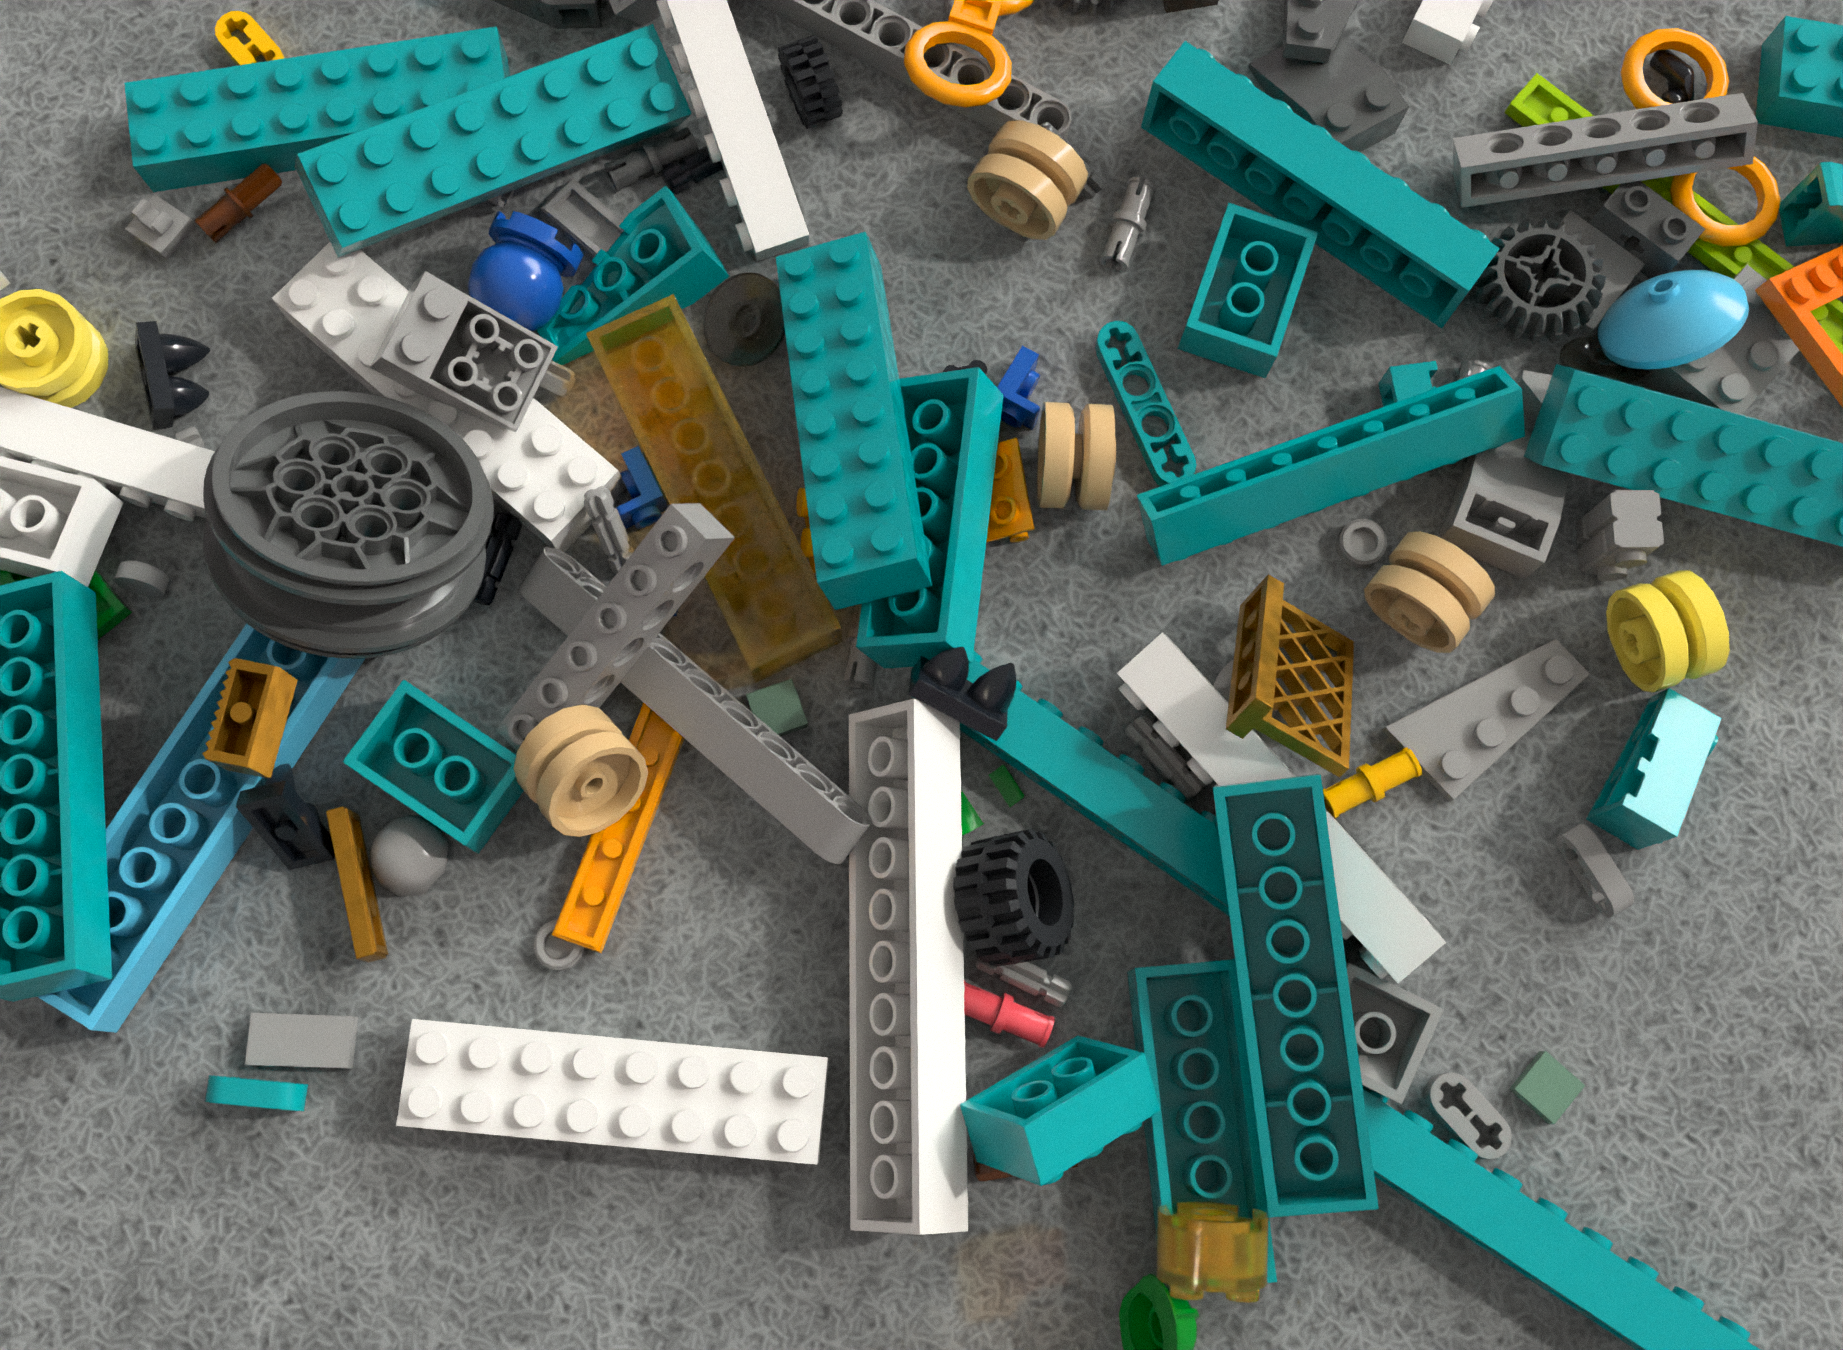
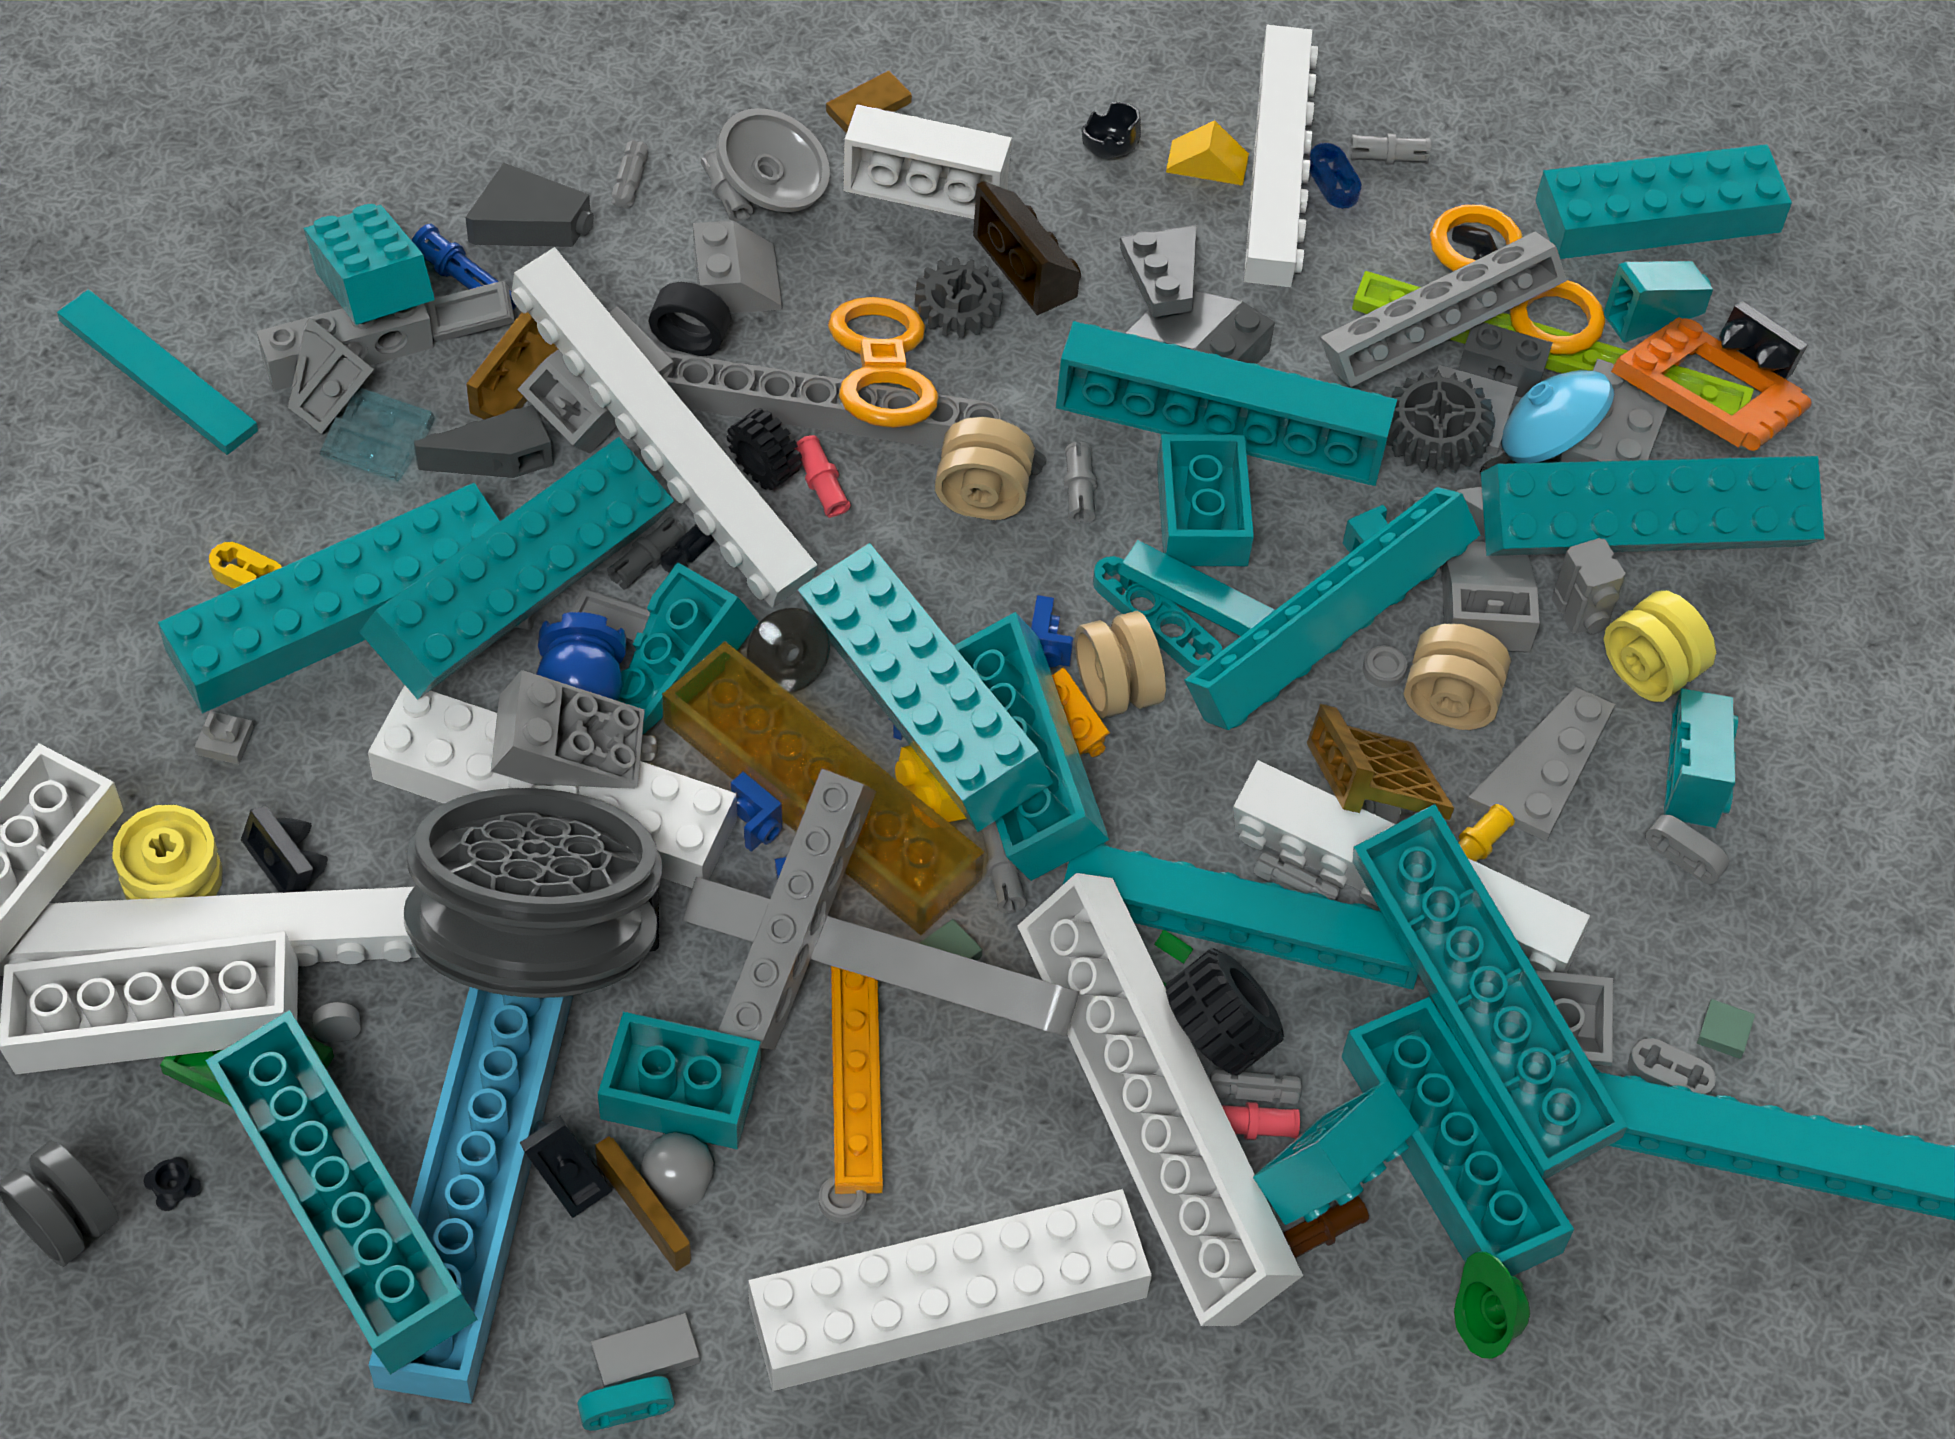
camera: 20 degrees left, 20 degrees down
(239, 202) = (290, 696): reddish brown axle -> none
(250, 718) = (513, 1070): pearl gold brick -> none
(580, 770) = (811, 1032): tan wheel -> none
(608, 527) = (747, 847): light grey axle -> none
(863, 129) = (822, 476): none -> coral pin
(979, 704) = (1133, 862): black tile -> none
(1195, 391) = (1192, 589): none -> teal tile
(1212, 1251) = (1509, 1203): clear yellow brick -> none

